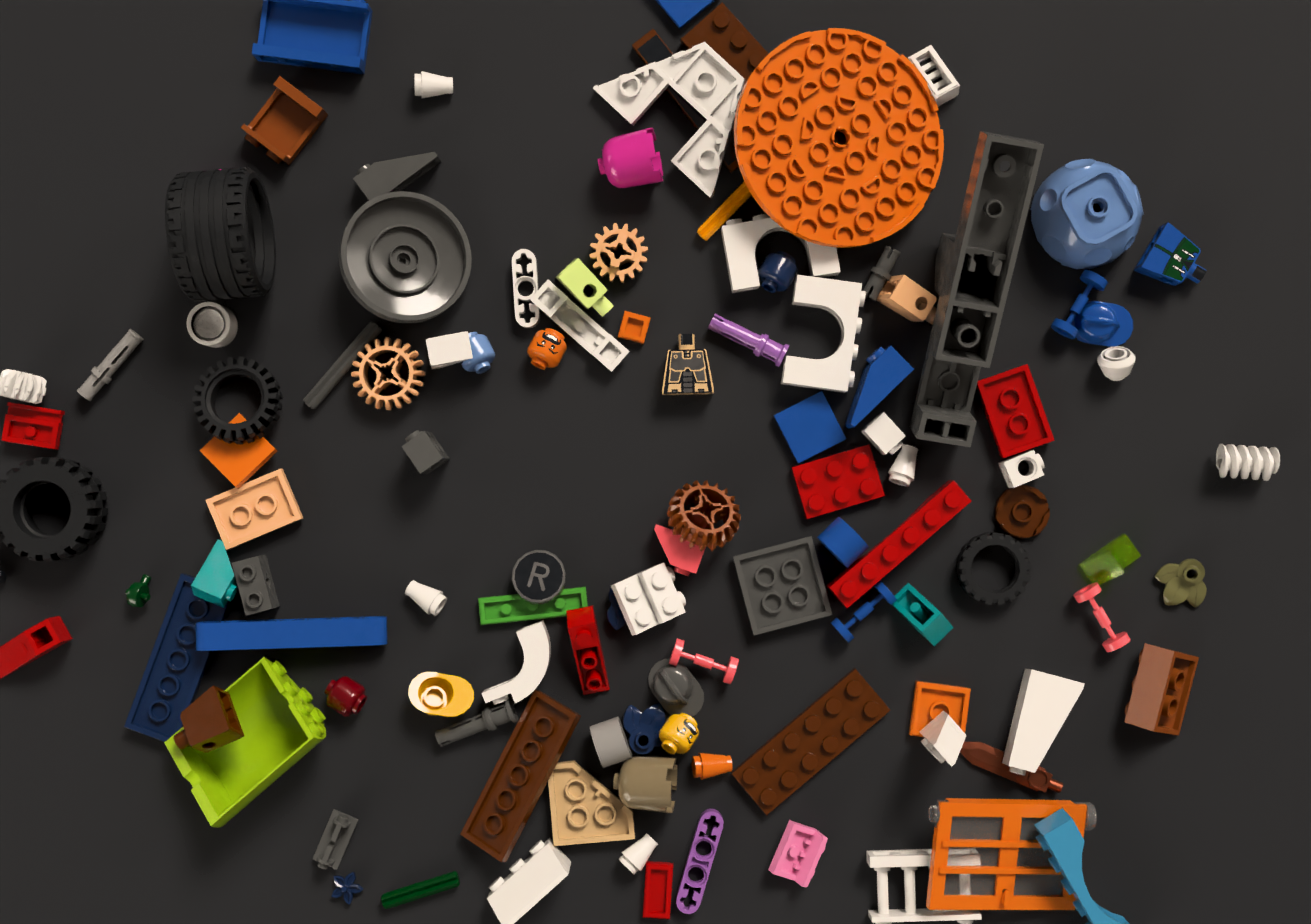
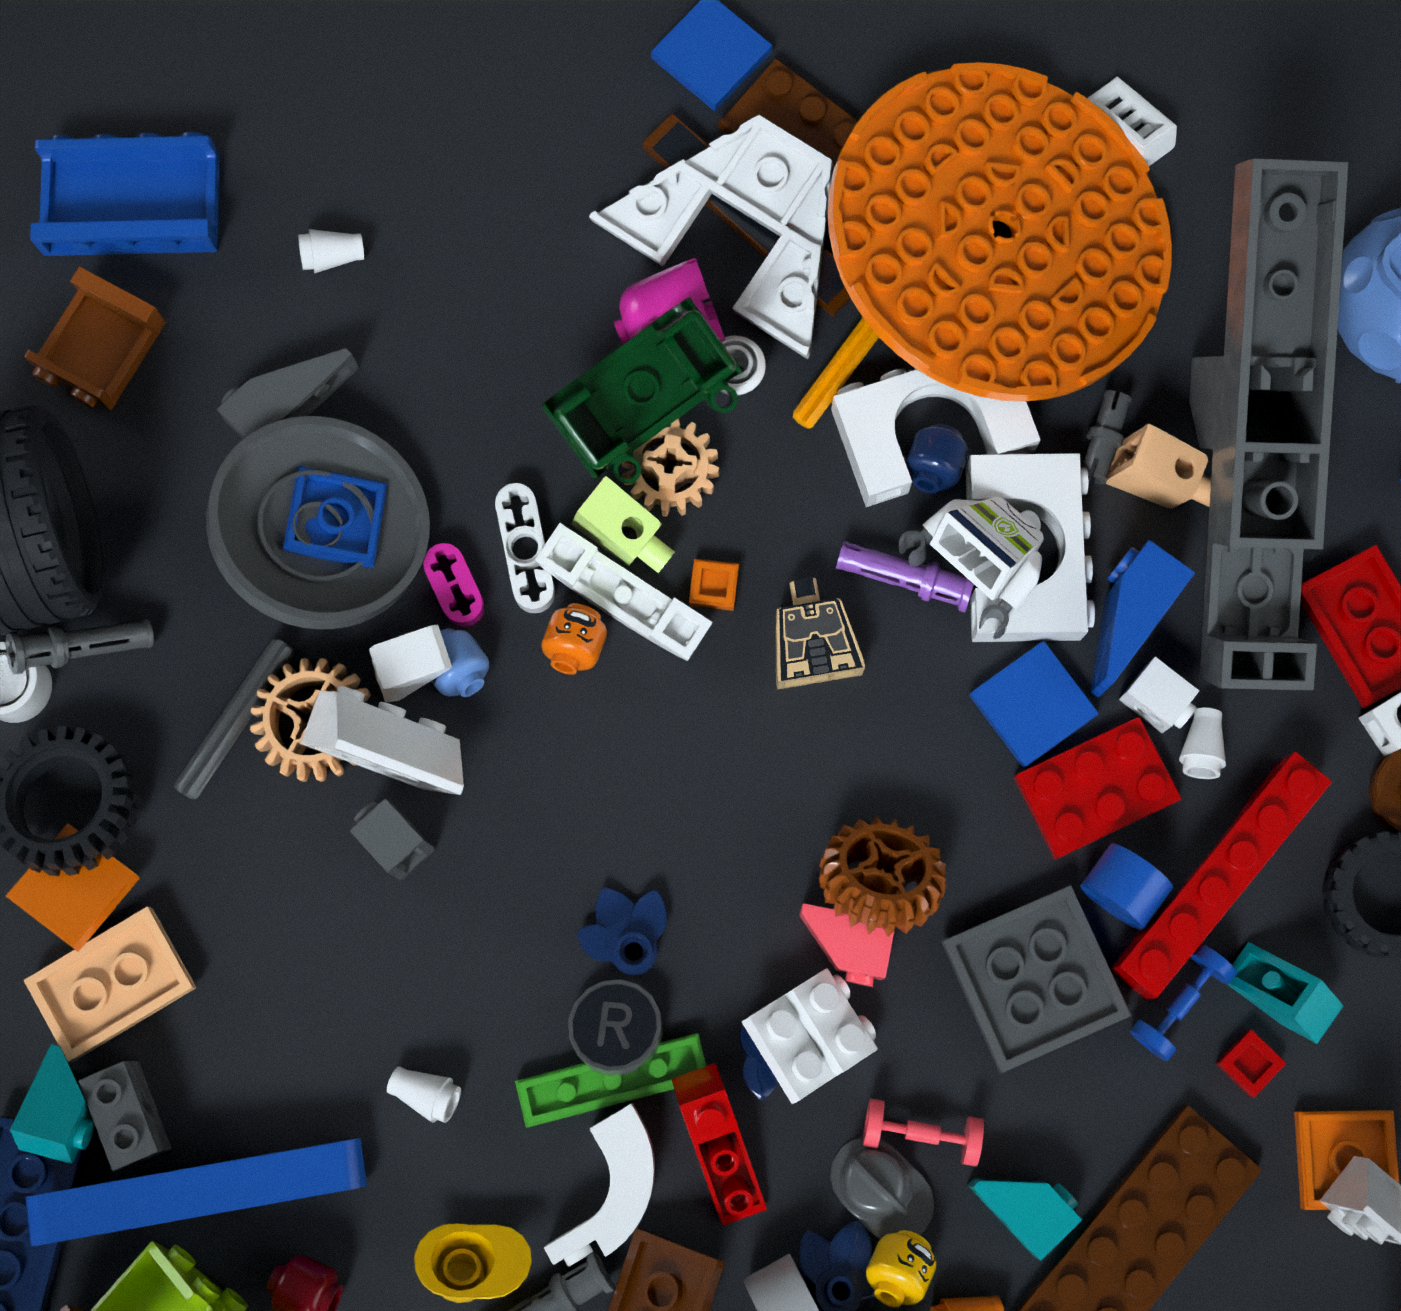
camera: 10 degrees left, 10 degrees down
(244, 310) = (58, 646): none -> dark grey pin
(427, 267) = (357, 531): none -> blue tile
(428, 395) = (385, 741): none -> white slope
(474, 306) = (443, 588): none -> dark pink beam
(551, 518) = (625, 923): none -> dark blue plate
(607, 207) = (643, 390): none -> dark green container
(666, 189) = (749, 359): none -> white cone
(756, 712) = (1030, 1210): none -> teal slope
(798, 333) = (988, 546): none -> white torso
(896, 650) = (1250, 1063): none -> red tile

